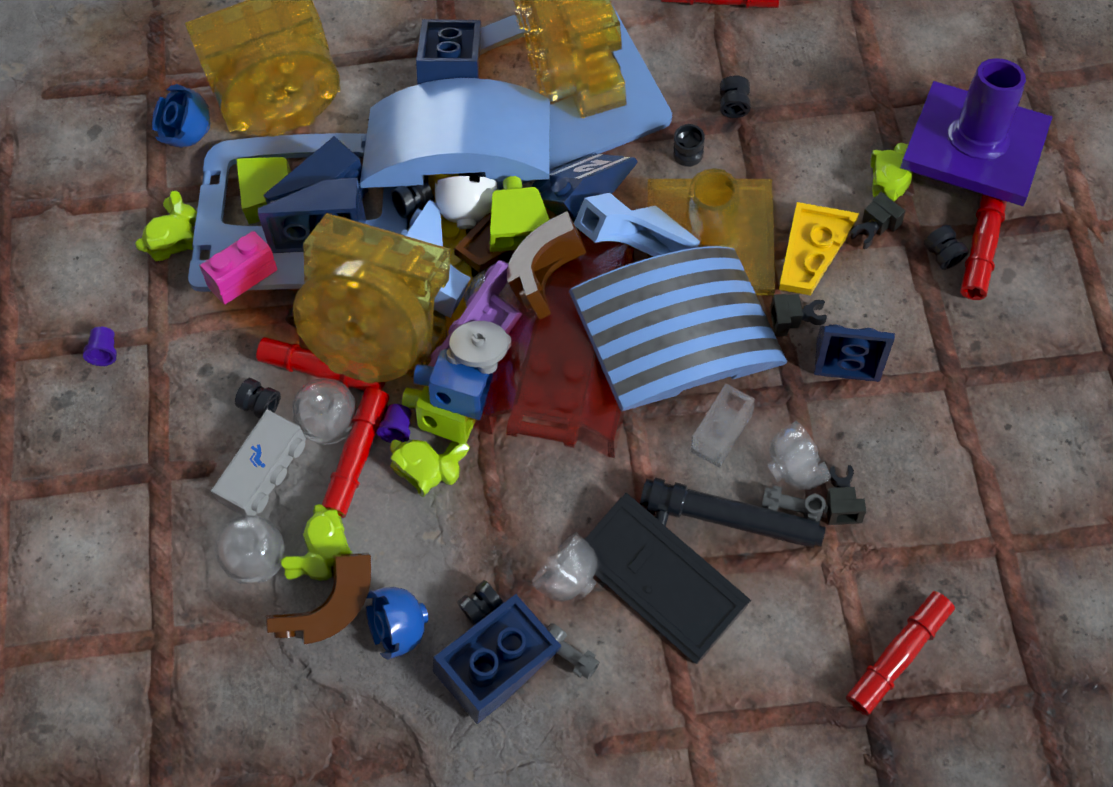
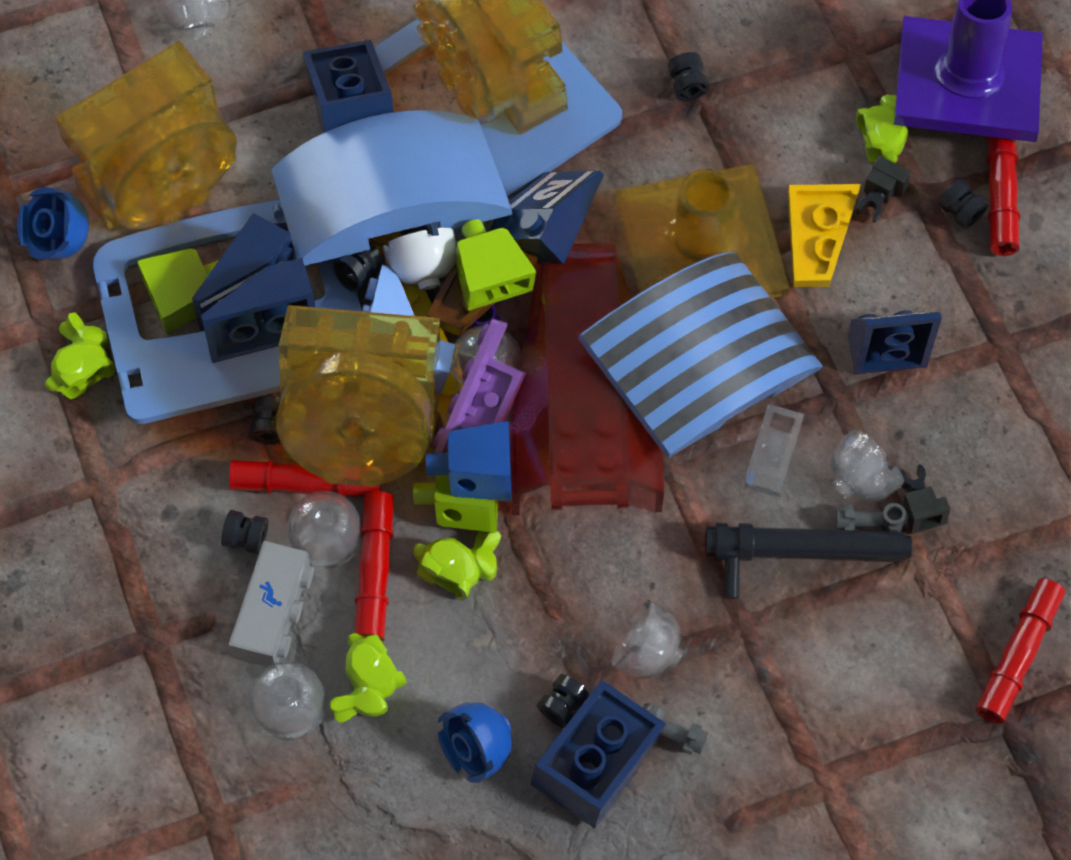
camera: 20 degrees left, 0 degrees up
(100, 347) = (41, 512): dark purple piece -> none
(238, 267) = (187, 387): dark pink brick -> none
(343, 604) = (413, 733): reddish brown arch -> none
(395, 424) = (410, 526): dark purple piece -> none
(478, 345) = (490, 418): light grey piece -> none
(539, 257) = (530, 305): reddish brown arch -> none
(645, 229) = (633, 250): light blue arch -> none
(664, 578) = (753, 629): black piece -> none
(688, 145) = (651, 142): black wheel -> none
(788, 313) = (811, 311): pearl dark grey piece -> none

